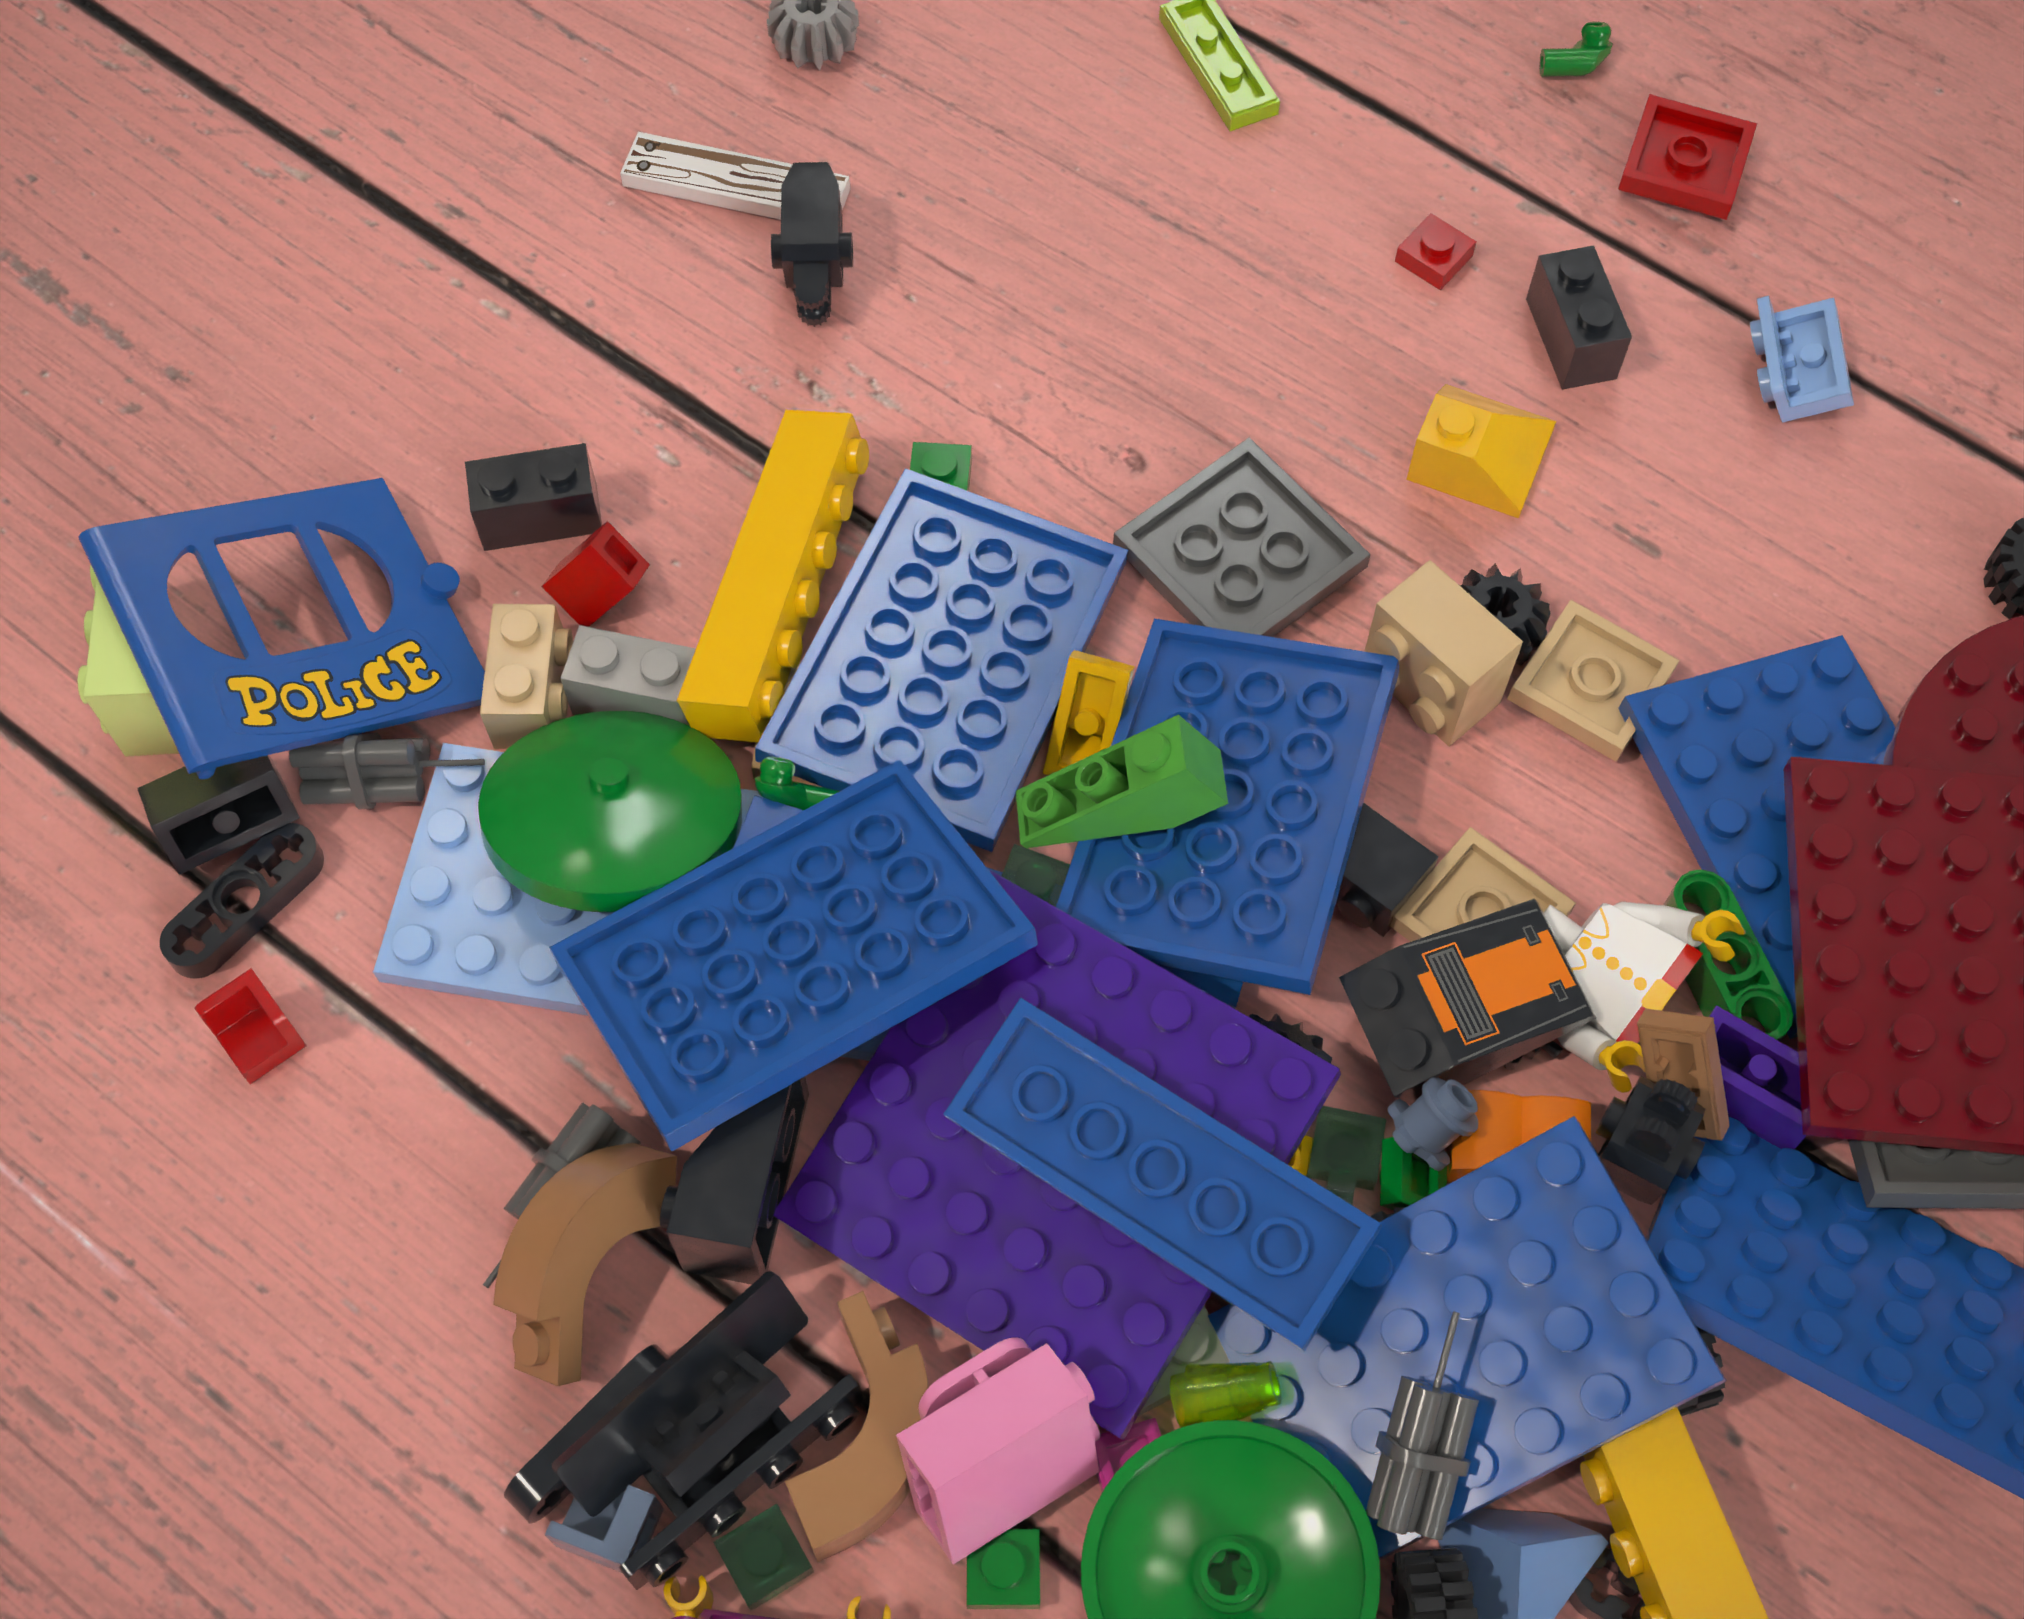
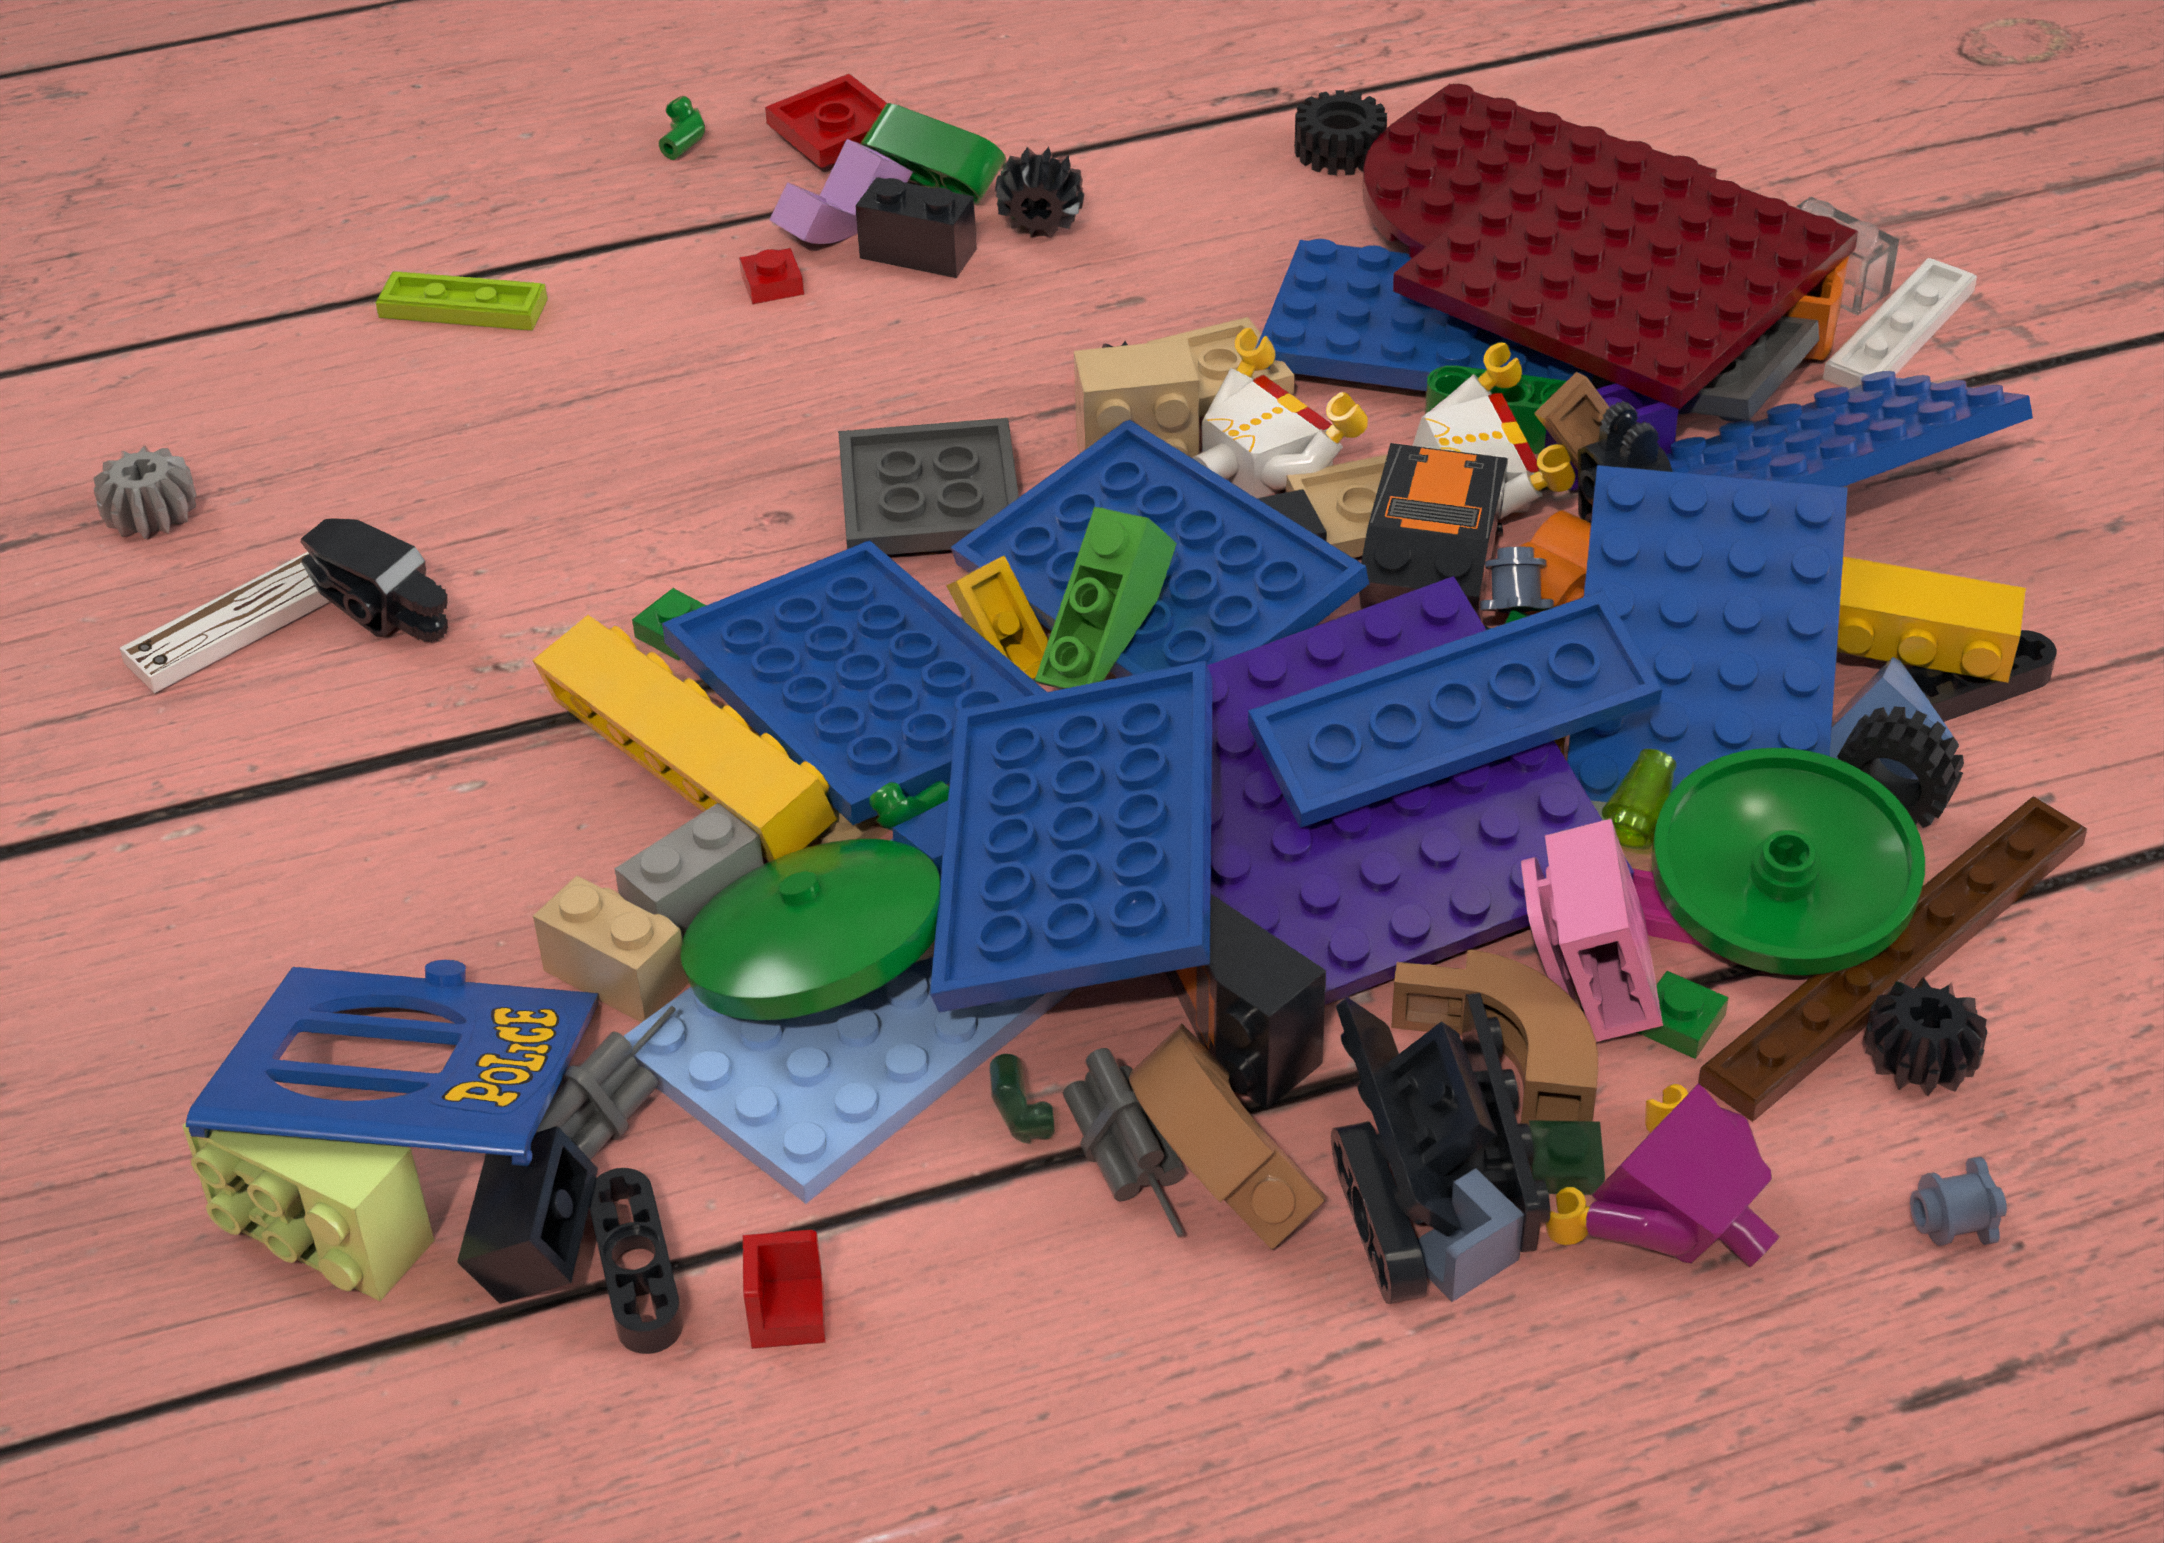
camera: 55 degrees left, 20 degrees down
(533, 496) = (432, 867): black brick -> none
(543, 1086) = (1010, 1097): none -> clear green arm
(596, 575) = (548, 858): red panel -> none
(1422, 1454) = (1777, 687): dark grey piece -> none
(1479, 450) = (965, 335): yellow slope -> none
(1515, 771) = (1264, 433): none -> white torso
(1617, 226) = (833, 213): none -> lavender brick
(1695, 262) = (936, 151): none -> green beam
(1704, 381) = (1039, 192): none -> black gear
(1803, 359) = (1087, 144): light blue bracket -> none

